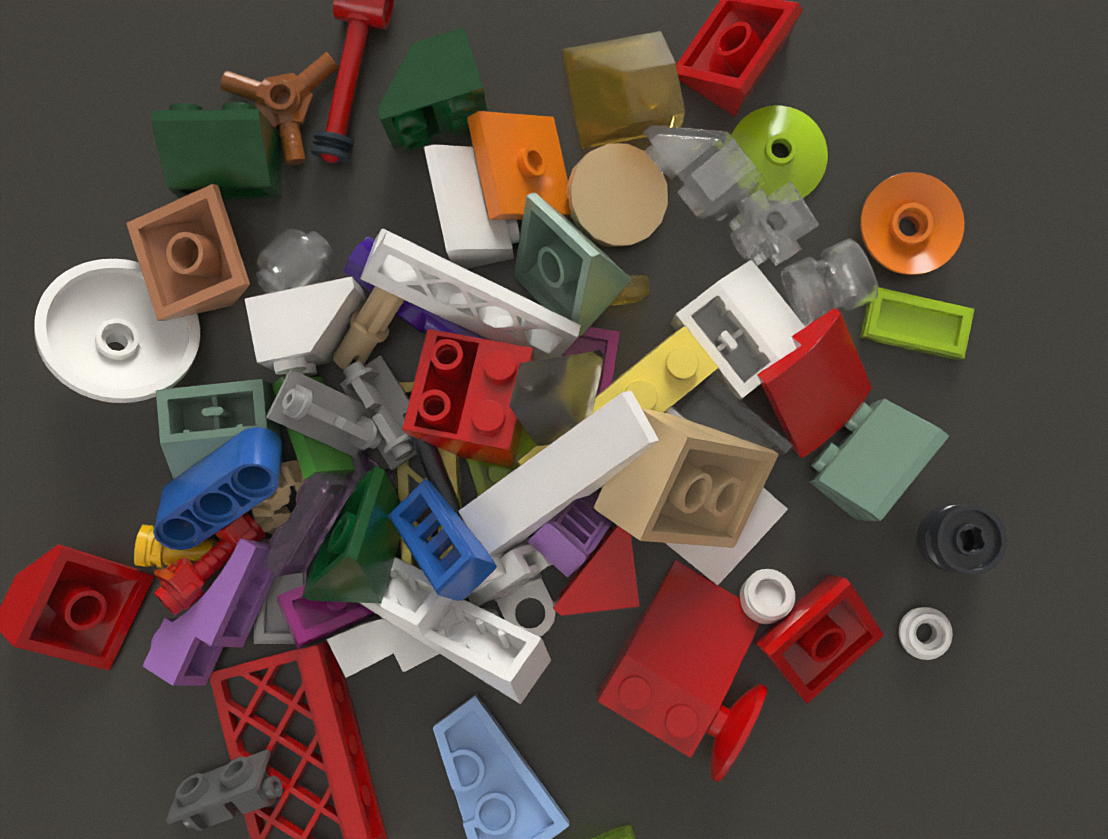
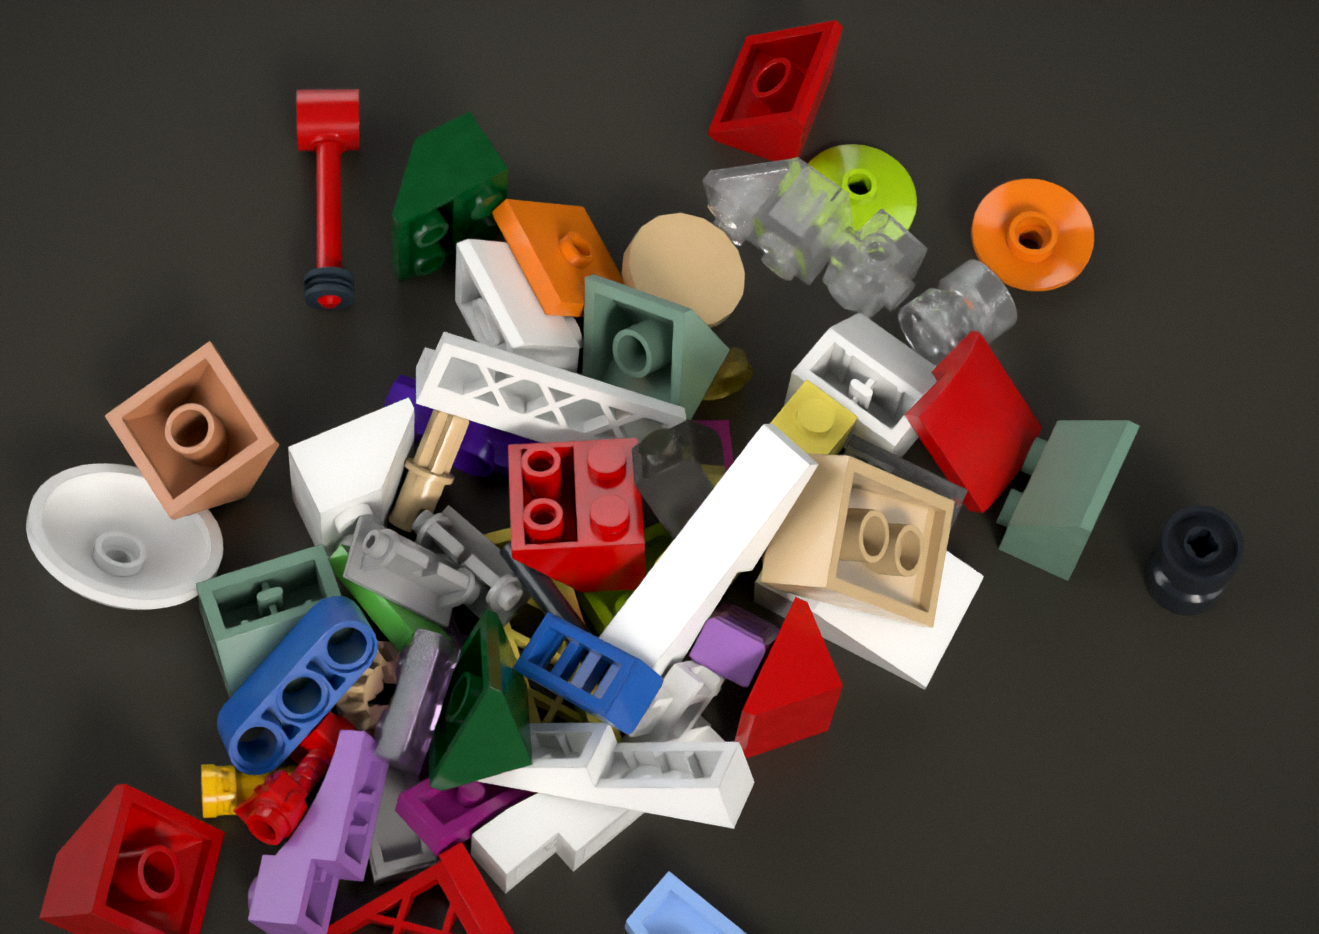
camera: 25 degrees left, 20 degrees down
(219, 148) = (201, 300): dark green slope -> none
(284, 100) = (257, 250): dark orange piece -> none
(294, 261) = (312, 411): clear head -> none
(623, 88) = (655, 159): clear yellow slope -> none
(679, 659) = (904, 779): red slope -> none
(732, 729) = (986, 827): red dish -> none
(767, 596) = (988, 683): white tile -> none
(820, 636) = (1065, 713): red slope -> none
(918, 324) = (1073, 346): lime tile -> none
(939, 640) = (1197, 670): white plate -> none

